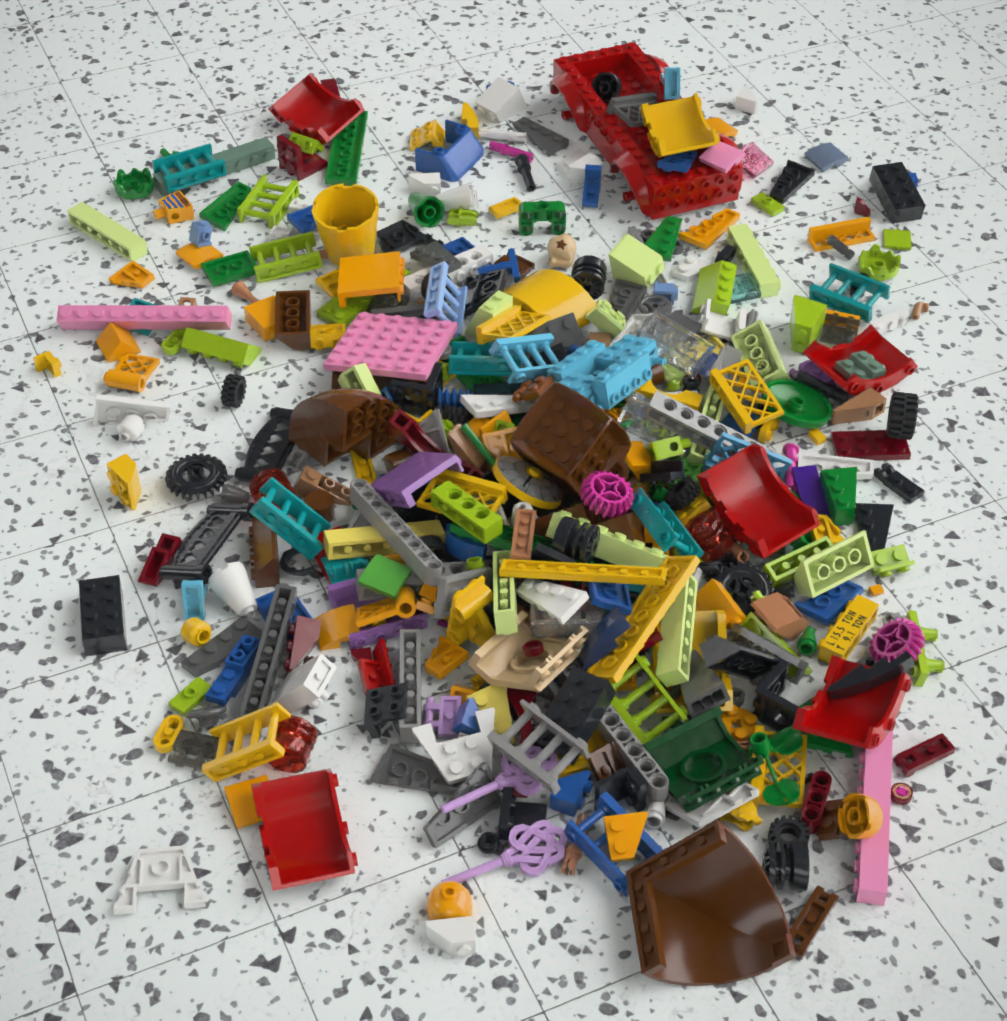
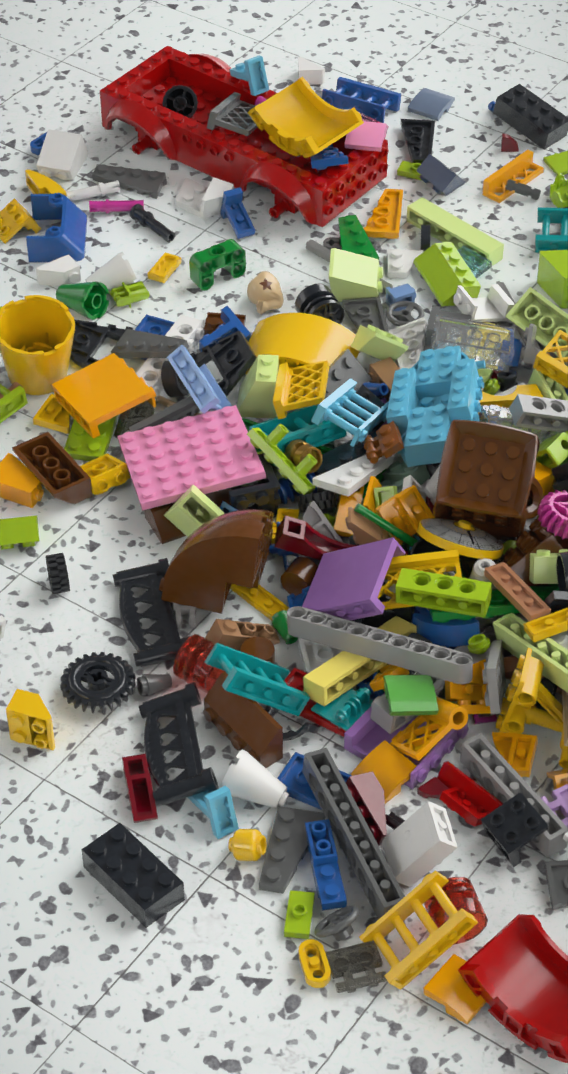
camera: 30 degrees left, 0 degrees up
(445, 367) = (274, 455): none -> lime plate
(470, 381) = (299, 449): none -> pearl gold wheel
(774, 128) = (364, 97): none -> blue fence
(778, 212) = (439, 175): none -> dark blue slope

